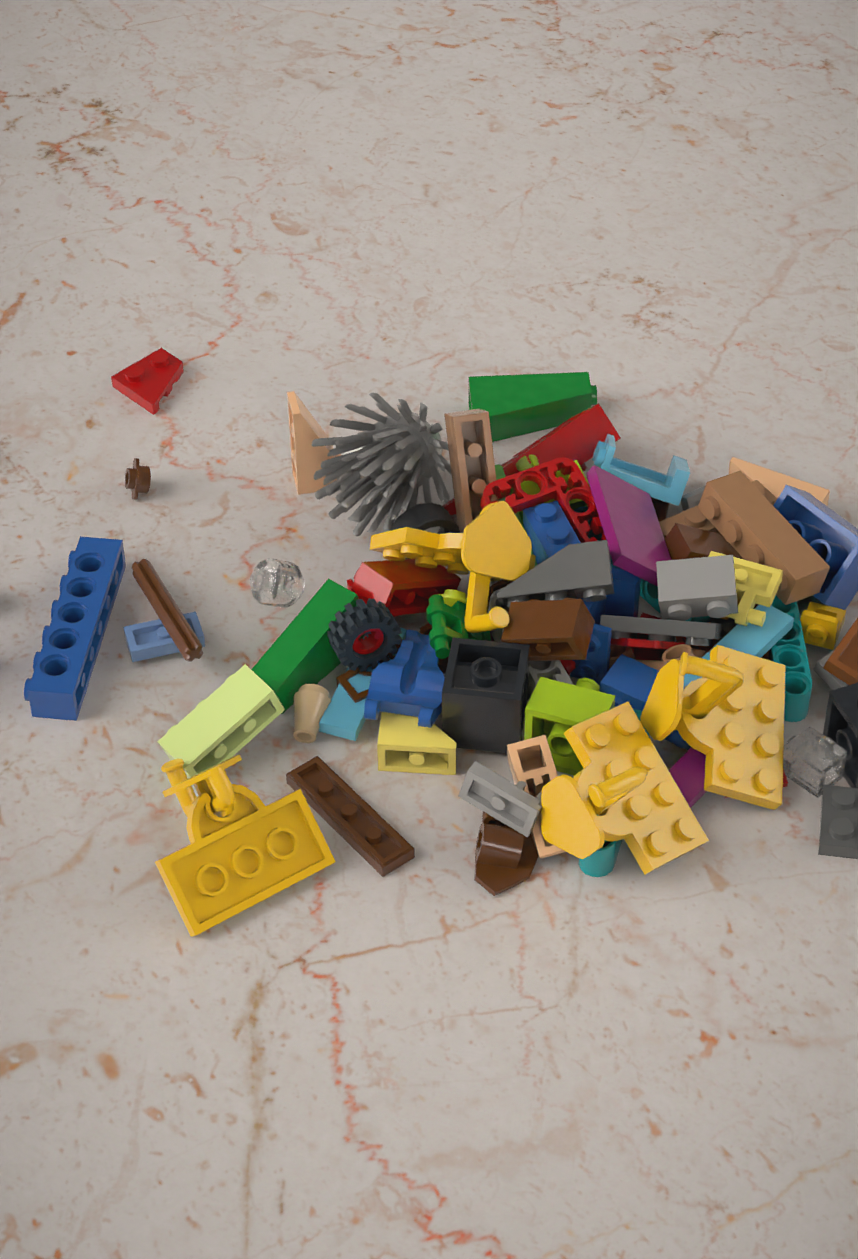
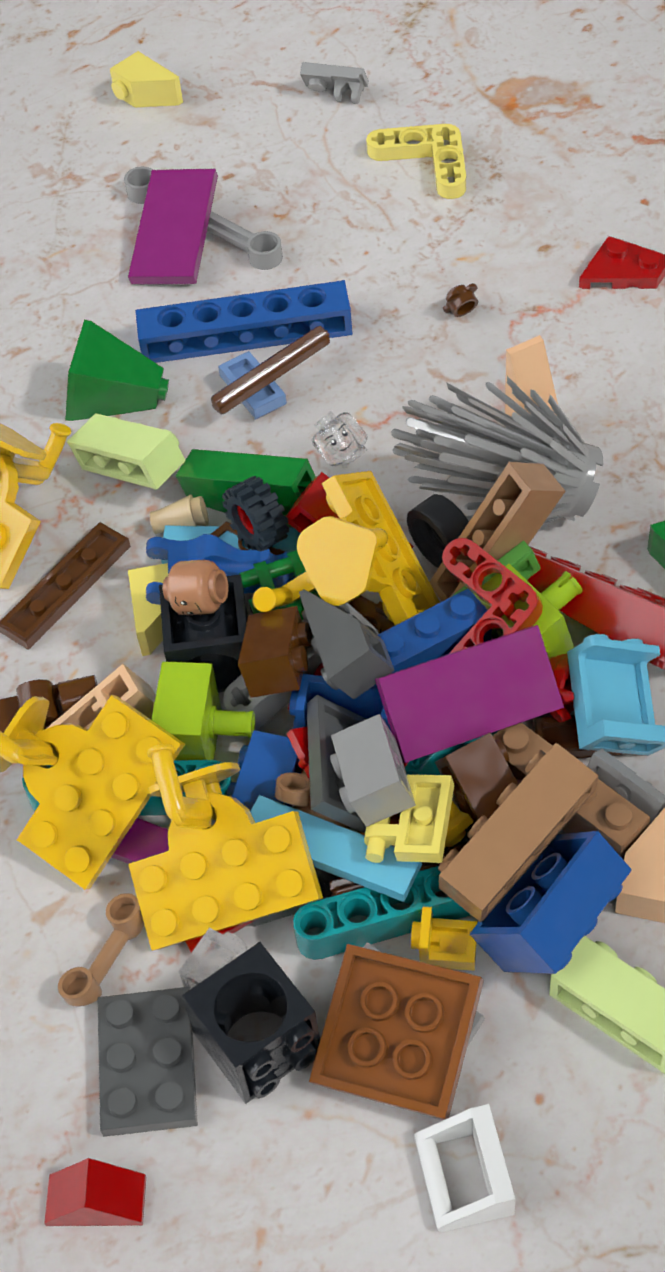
camera: 80 degrees right, 10 degrees up
(98, 735) = (110, 377): none -> green slope
(472, 654) = (195, 587): none -> nougat head
(501, 798) = (61, 663): light grey plate -> none
(745, 816) = (82, 985): none -> medium nougat bar

